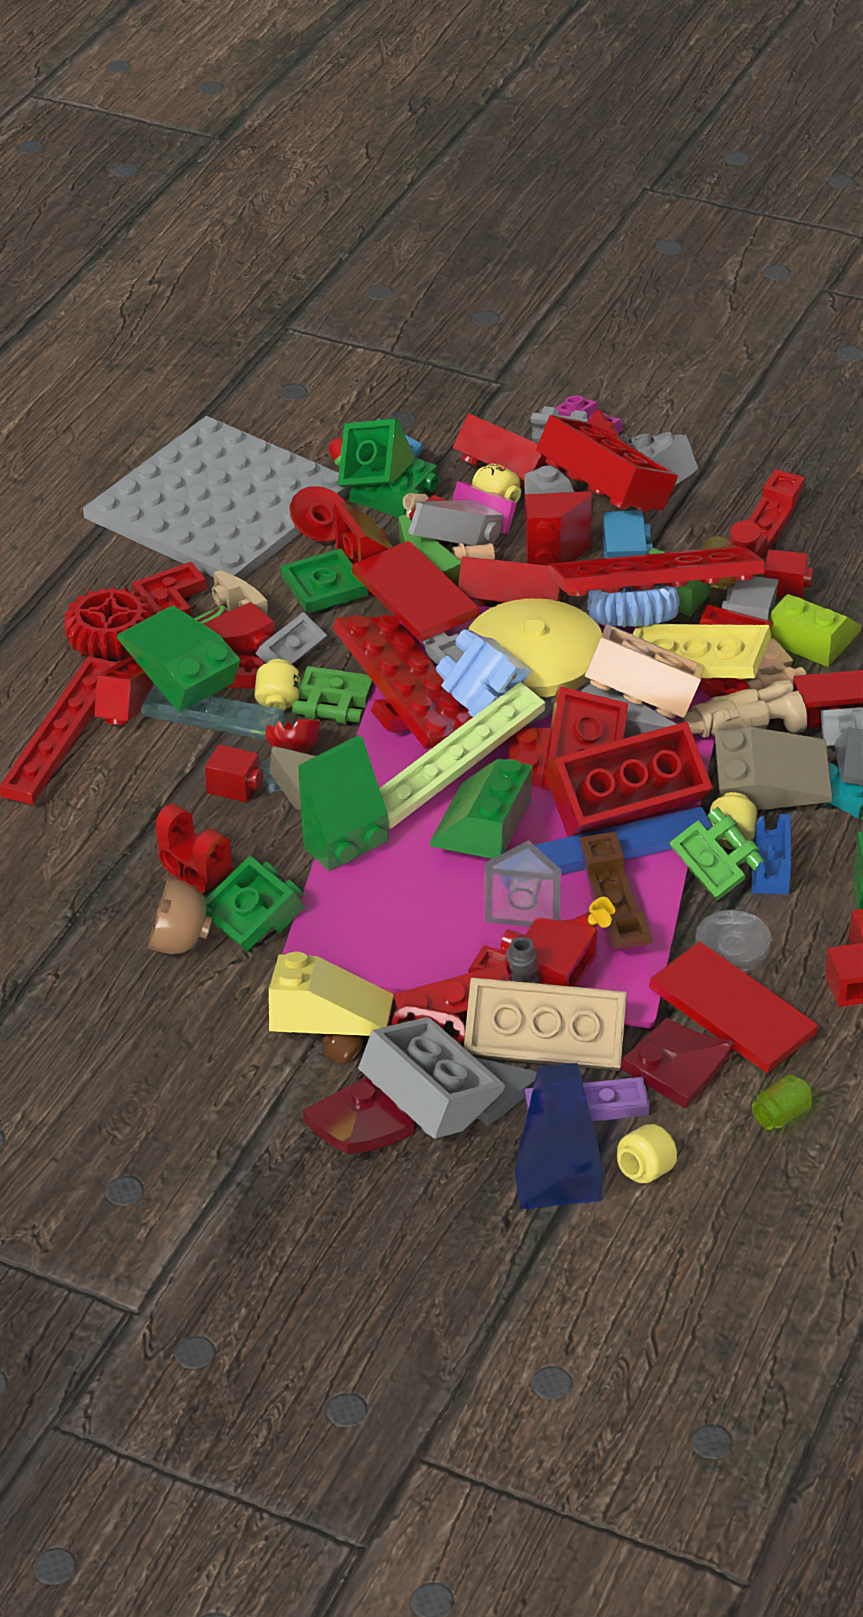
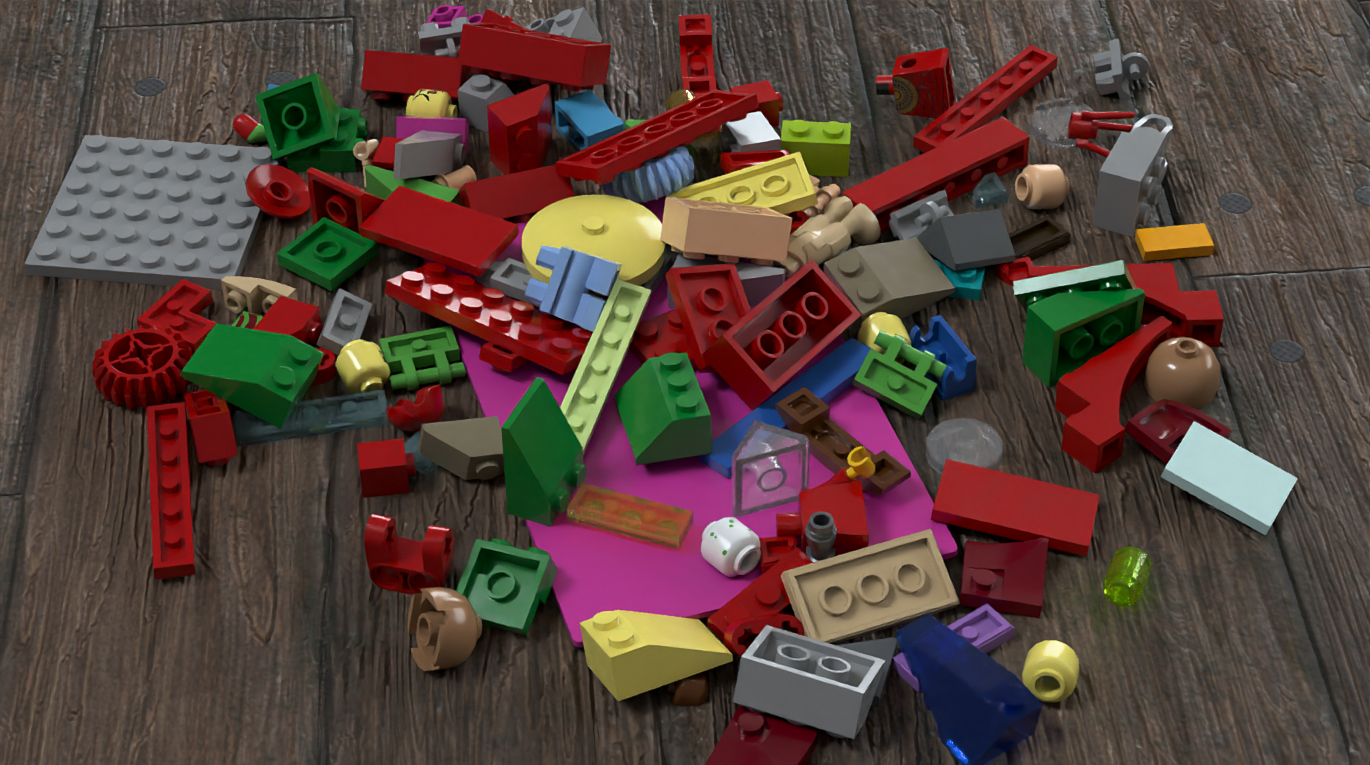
camera: 30 degrees left, 0 degrees up
(393, 886) = (630, 515): none -> clear yellow plate
(453, 943) = (730, 547): none -> white head
(746, 534) = (709, 78): red piece -> none

